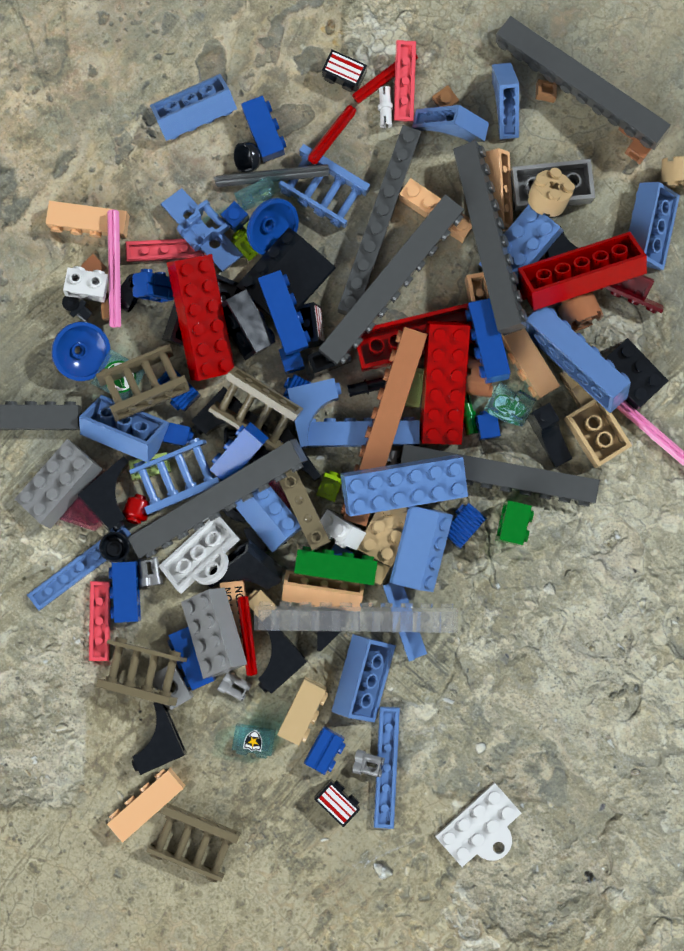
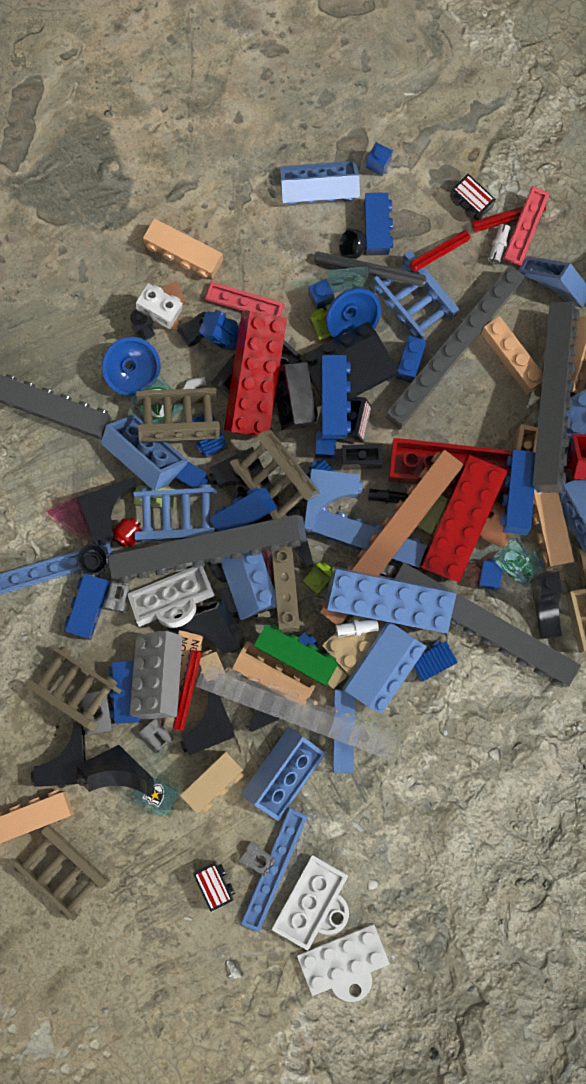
camera: 20 degrees right, 5 degrees down
(58, 484) = (62, 481): light grey brick -> none
(99, 621) = (52, 626): coral tile -> none
(105, 310) = (170, 338): medium nougat plate -> none
(114, 269) = (190, 301): bright pink axle -> none
(146, 346) = (195, 383): none -> white arm
(197, 233) = (280, 296): medium blue piece -> none
(206, 732) = (114, 768): none -> black arch
(242, 64) = (379, 159): none -> blue brick
(324, 750) = (220, 830): blue brick -> none
(341, 248) = (410, 359): none -> blue brick
(342, 530) = (315, 623): white brick -> none
(382, 521) = (357, 628): none -> white pin
(391, 280) = (447, 403): dark grey brick -> none
(433, 785) = (313, 904): none -> white plate
(445, 97) = (558, 253): medium nougat plate -> none
(469, 417) = (475, 560): green pin -> none
(514, 523) = (482, 676): green brick -> none

